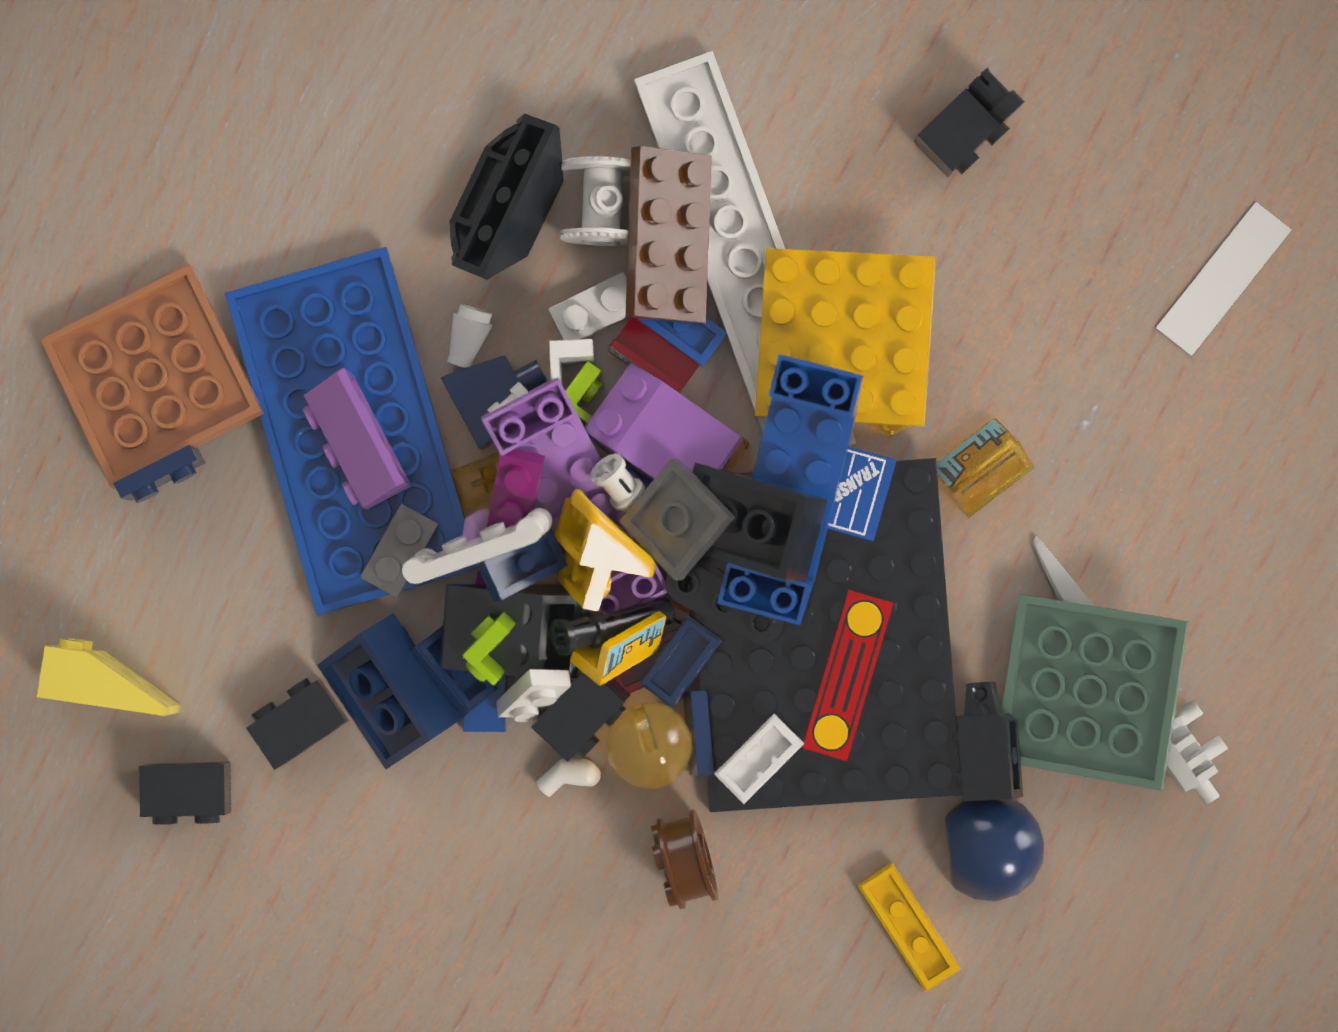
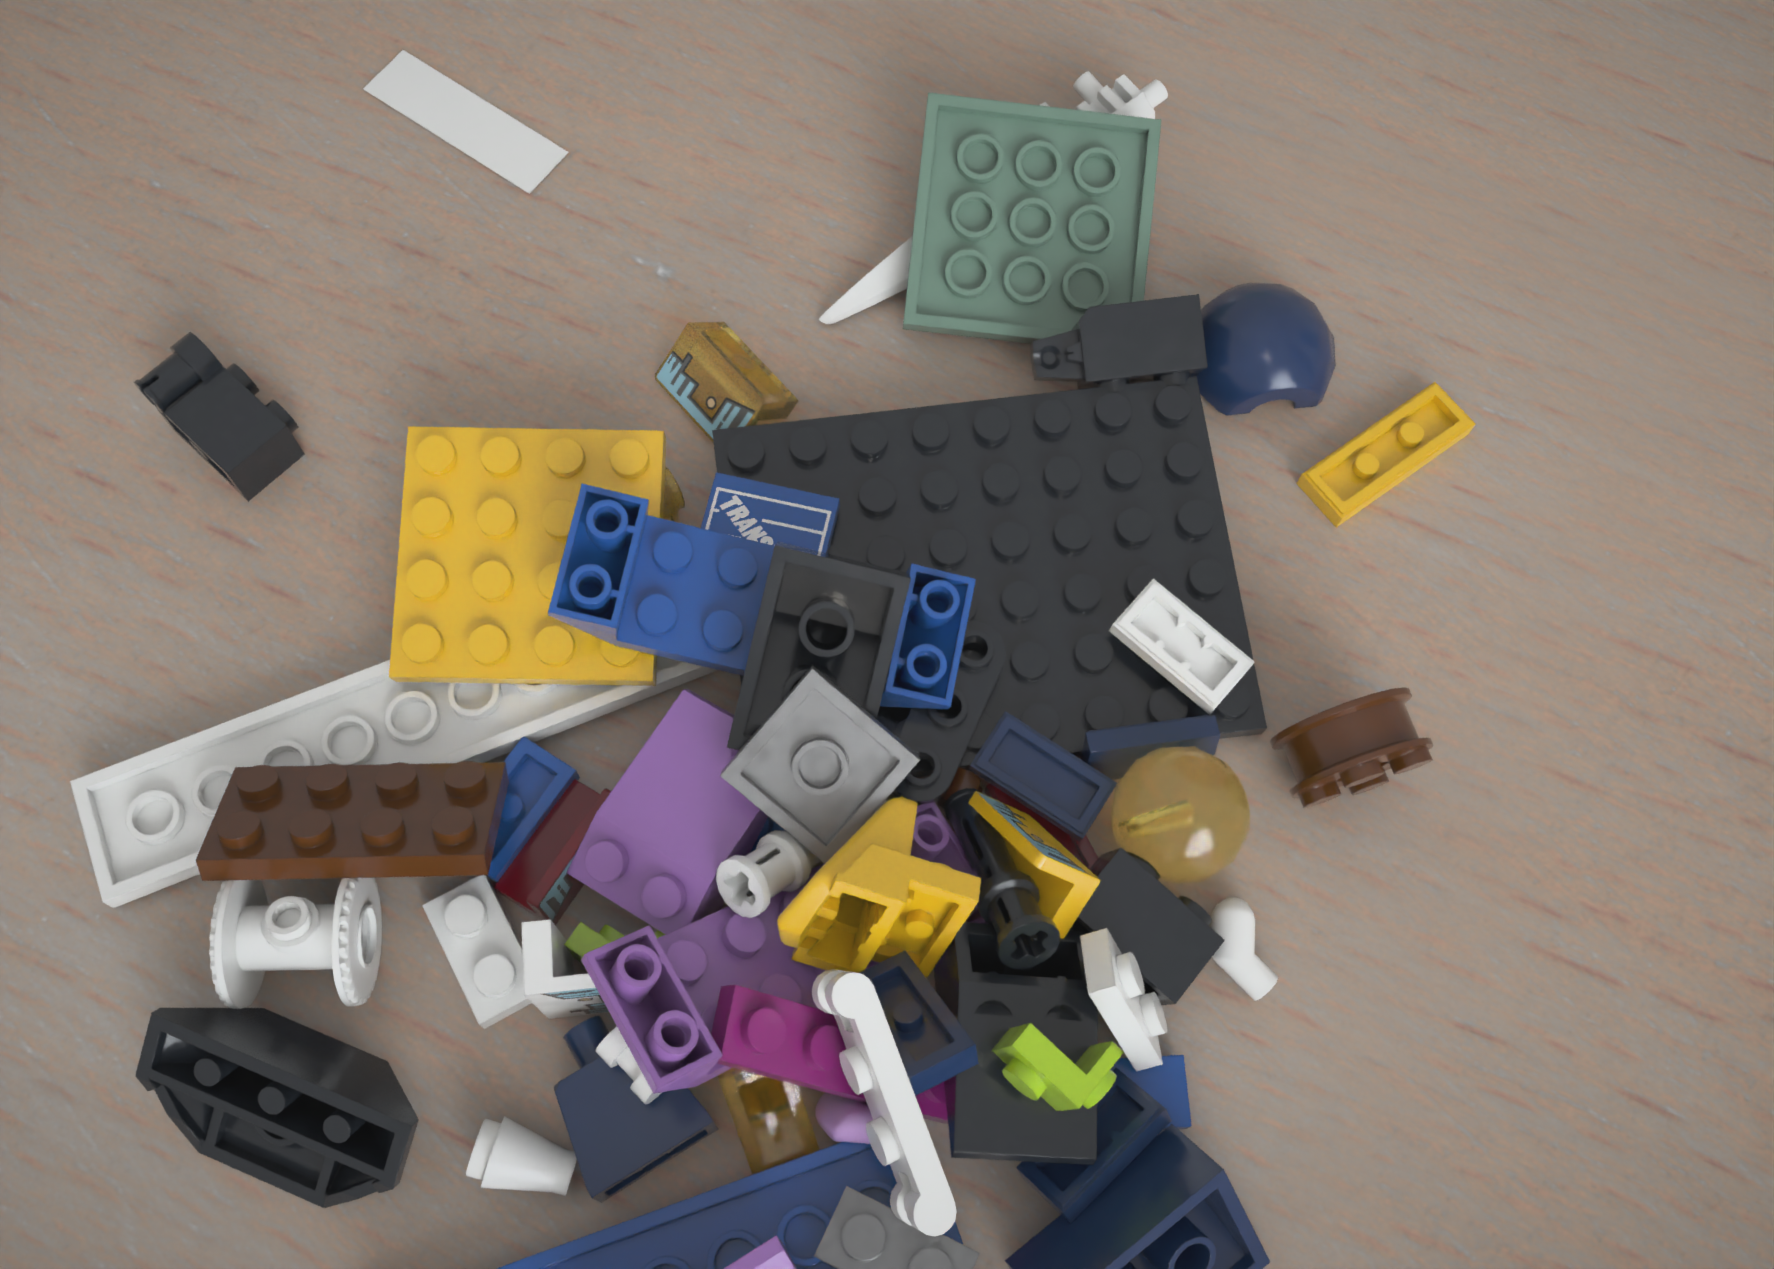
camera: 90 degrees left, 20 degrees down
(847, 675) = (1041, 532): sticker -> none

